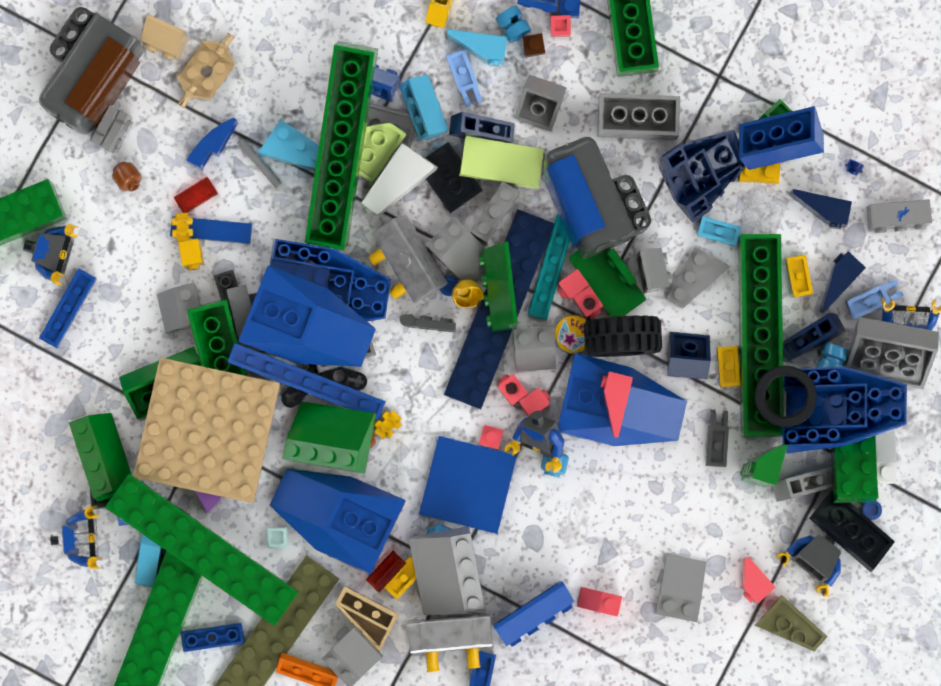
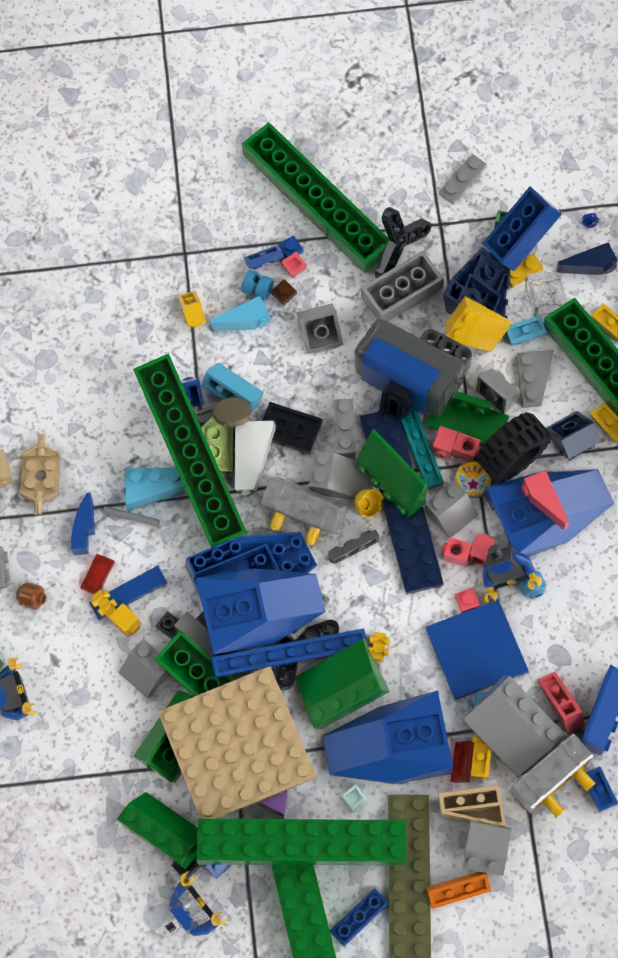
camera: 25 degrees left, 15 degrees down
(68, 308) = (52, 731): blue plate -> none
(148, 562) = (261, 889): medium azure slope -> none
(405, 132) = (232, 412): none -> dark tan tile
(447, 289) = (350, 511): blue tile -> none
(463, 75) = (246, 348): light blue hinge -> none
(482, 127) = (287, 375): dark blue slope -> none
(501, 162) = (321, 389): yellowish green tile -> none
(504, 579) = (562, 703): none -> coral slope
(553, 221) = (391, 407): none -> black window
(666, 69) = (399, 237): none -> black piece
(673, 200) = (476, 325): none -> yellow slope
(770, 47) = (462, 179): none -> light grey plate

